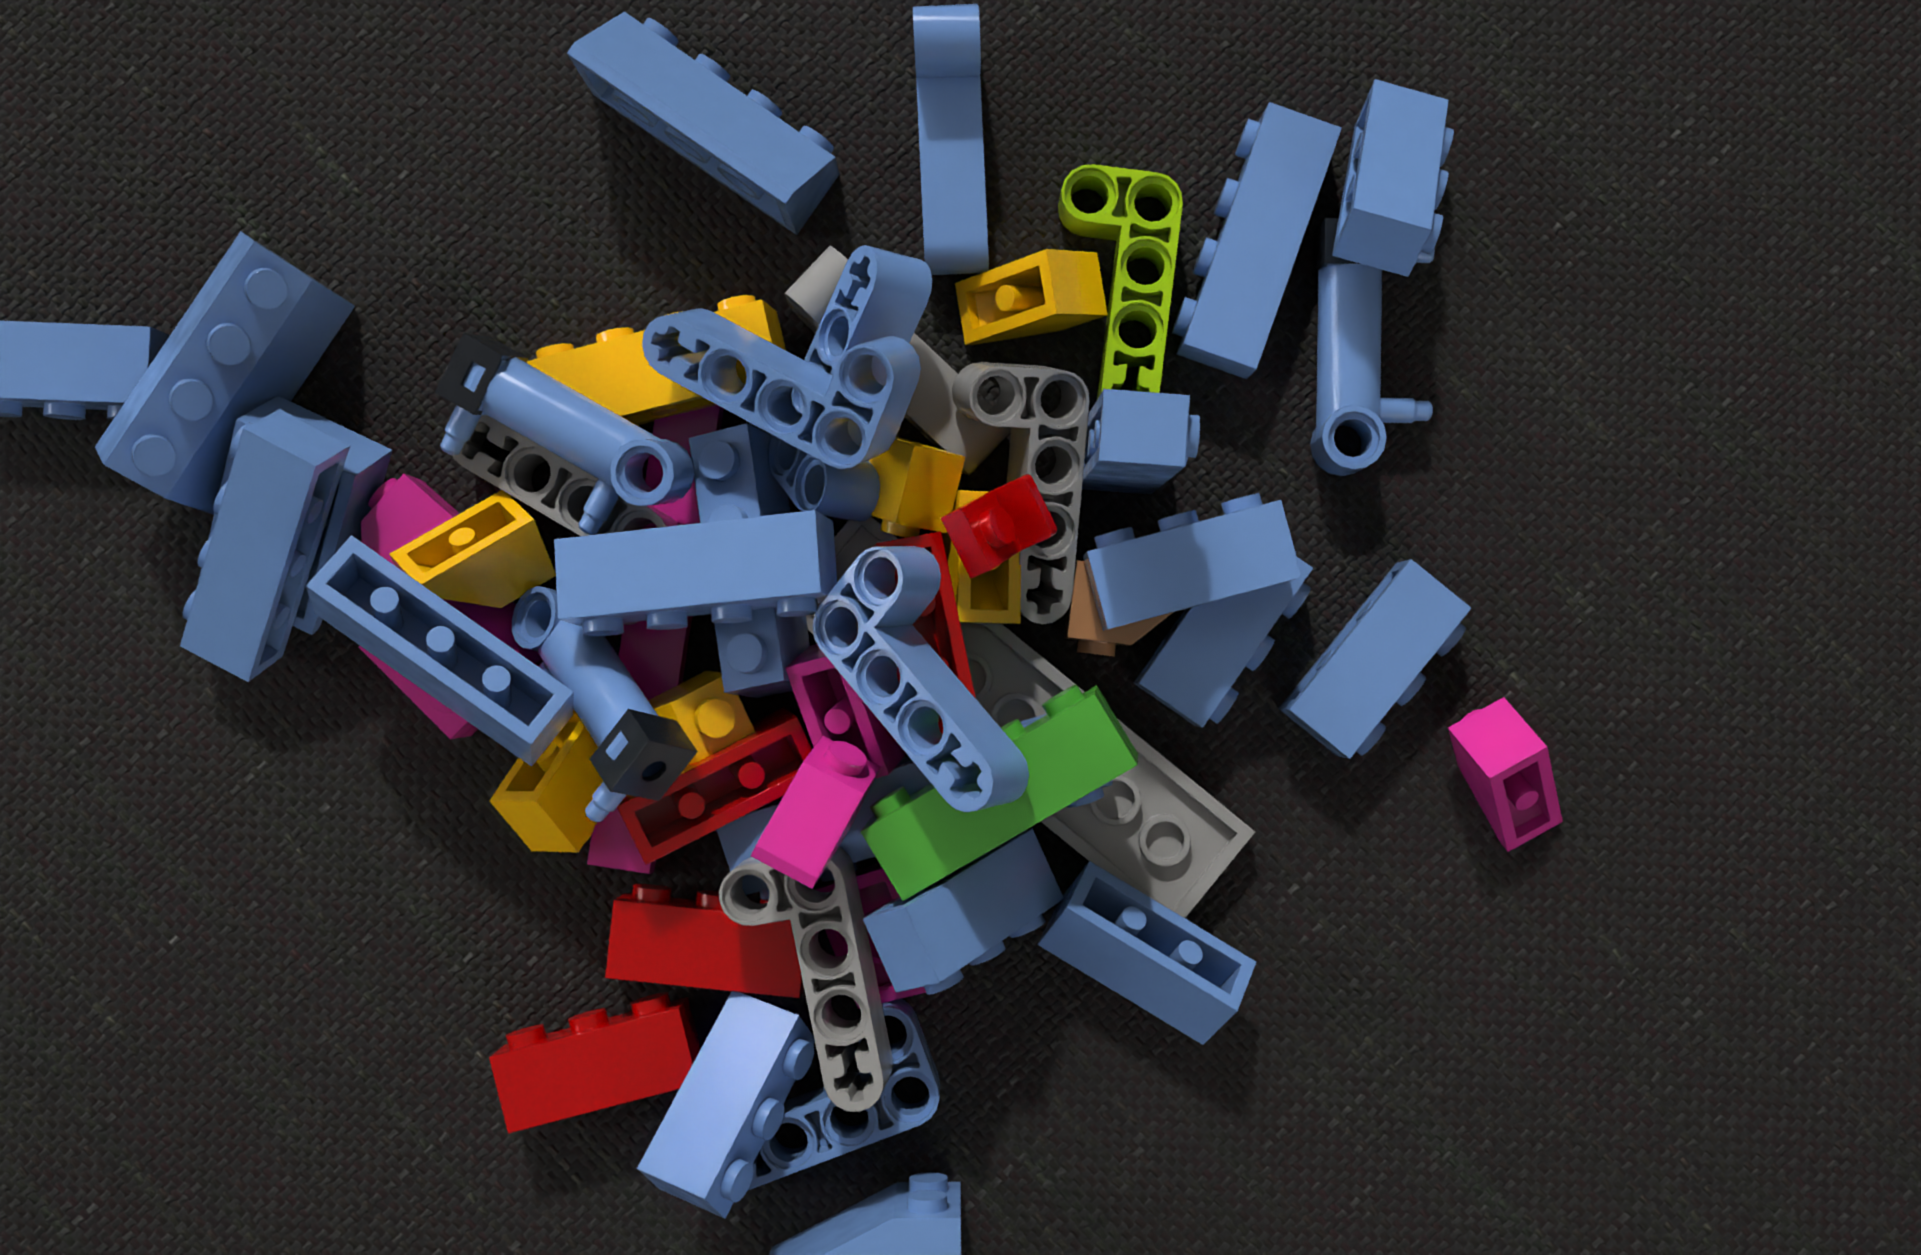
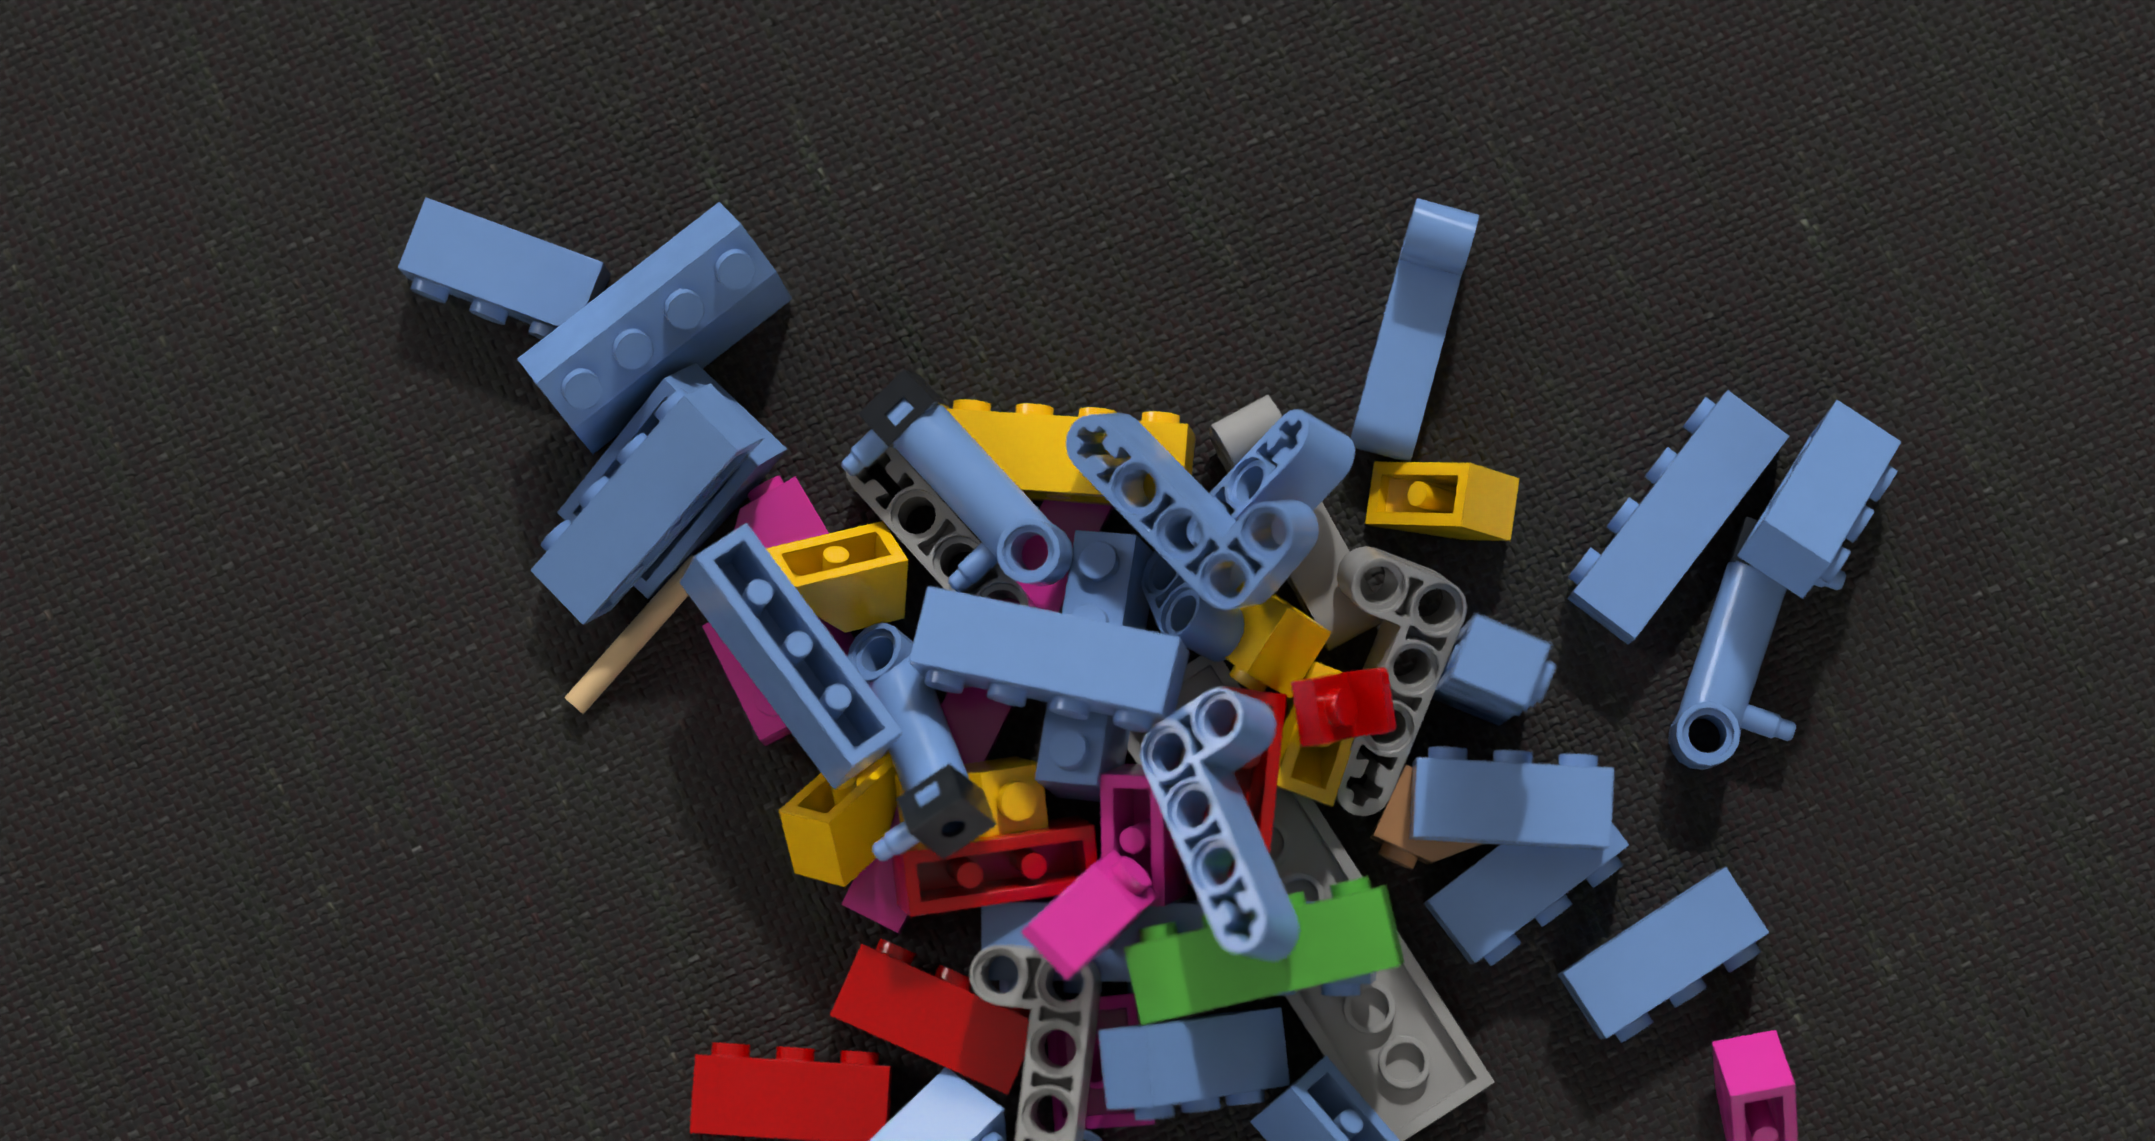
camera: 25 degrees right, 5 degrees down
(302, 693) = (629, 641): none -> tan bar
(706, 118) = (1190, 235): medium blue slope -> none
(1134, 240) = (1559, 477): lime beam -> none

